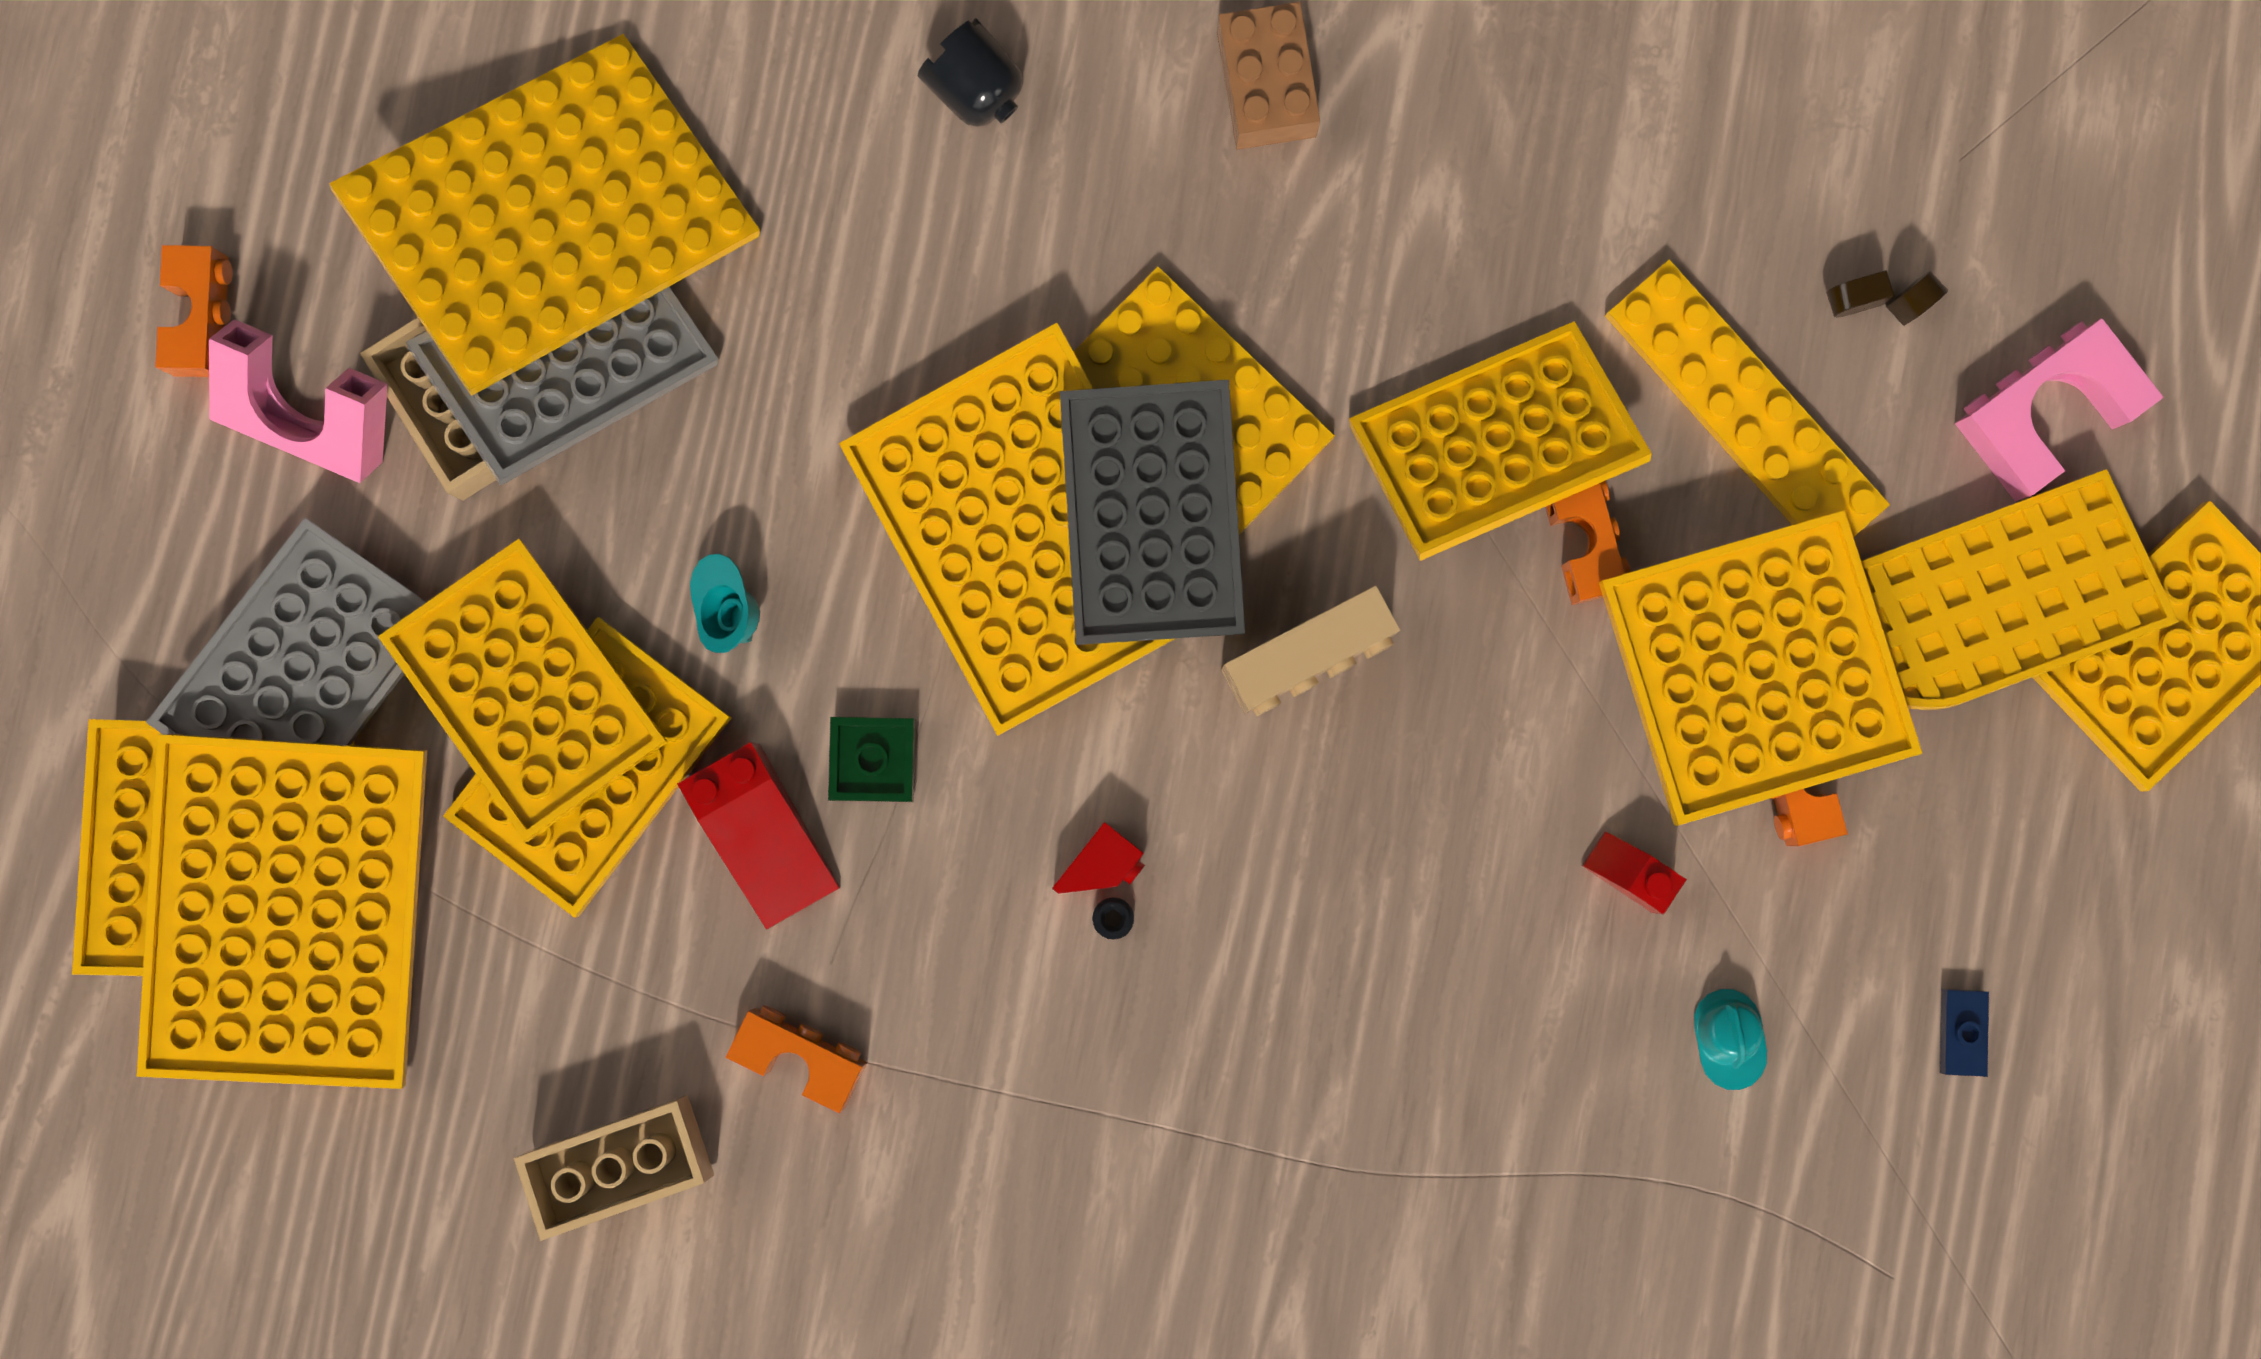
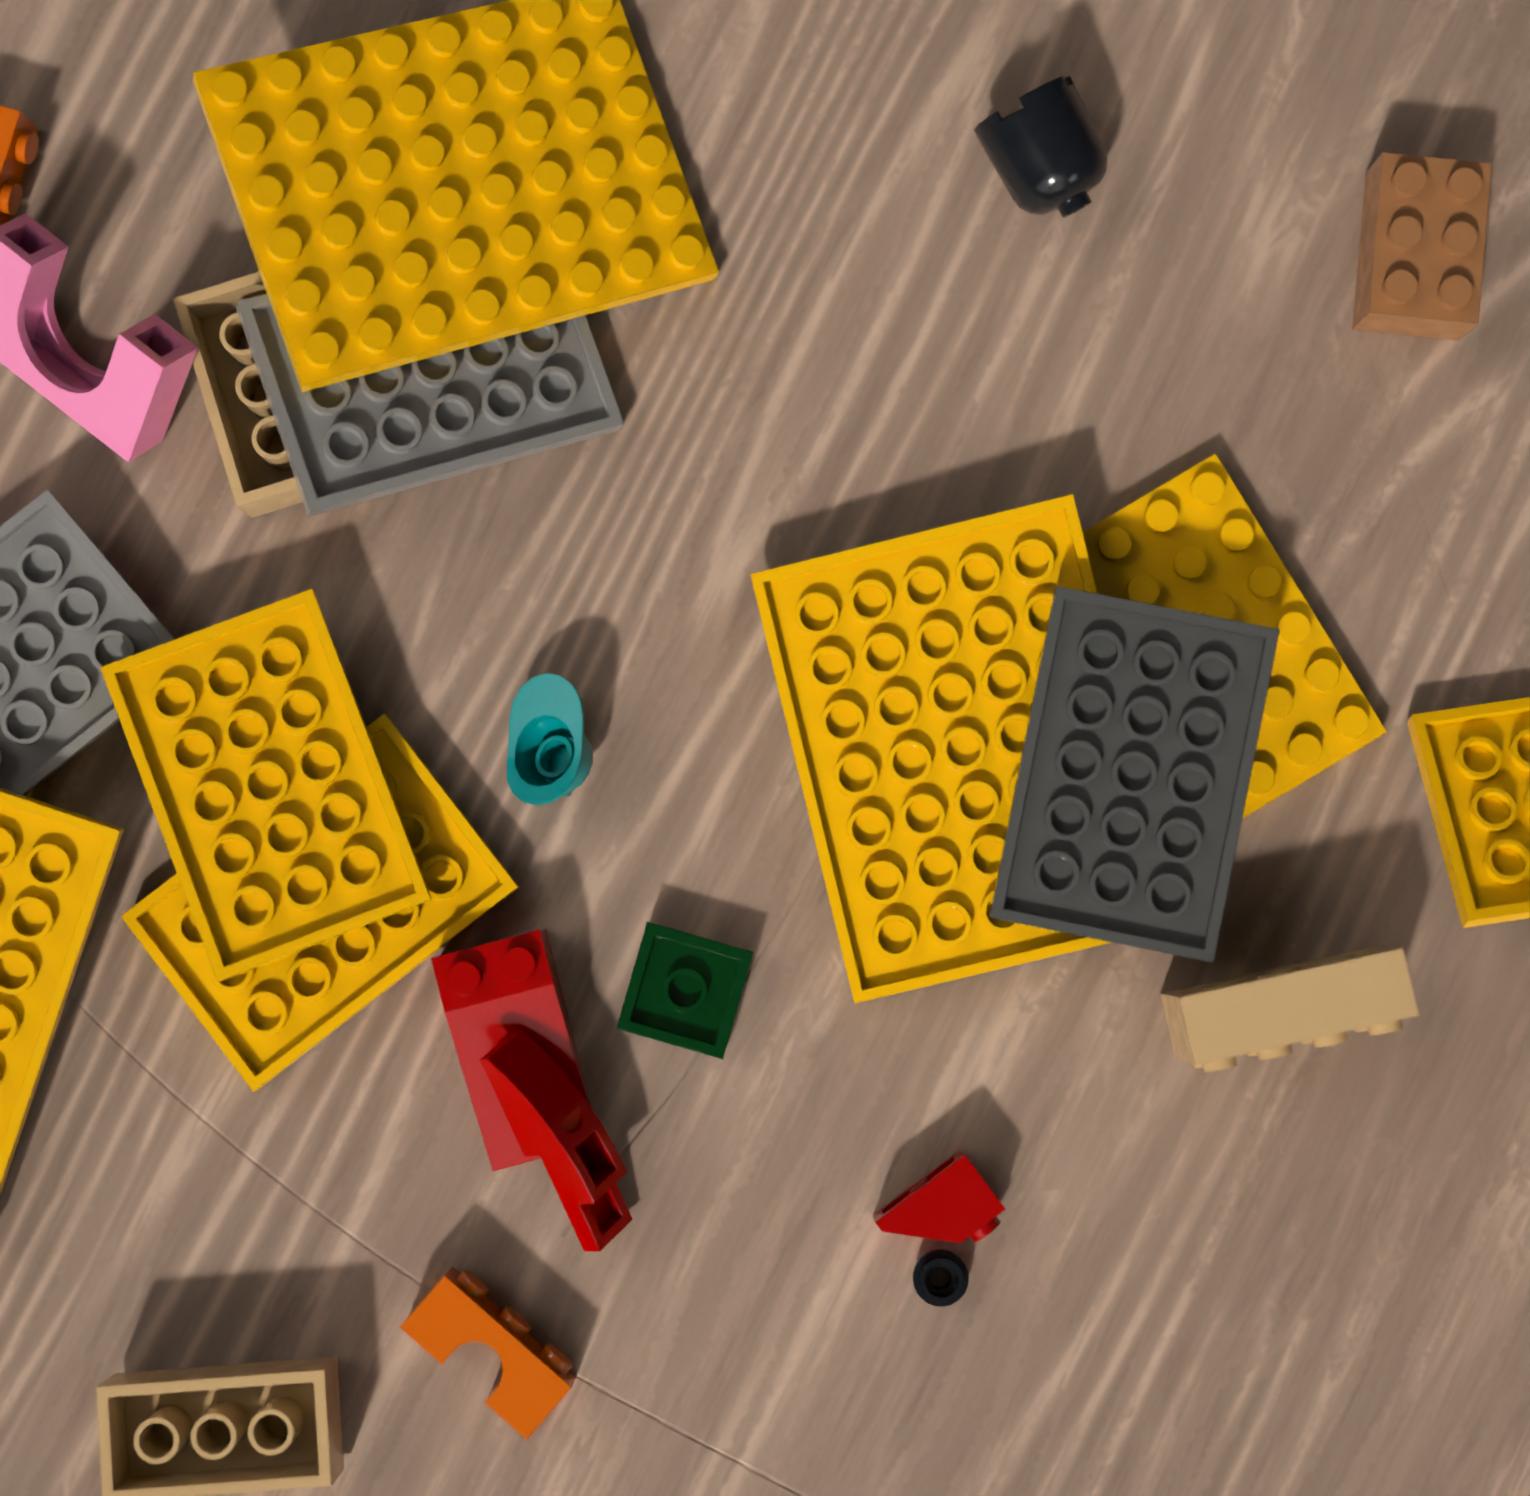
camera: 15 degrees right, 0 degrees up
(804, 880) = (561, 1128): none -> red slope

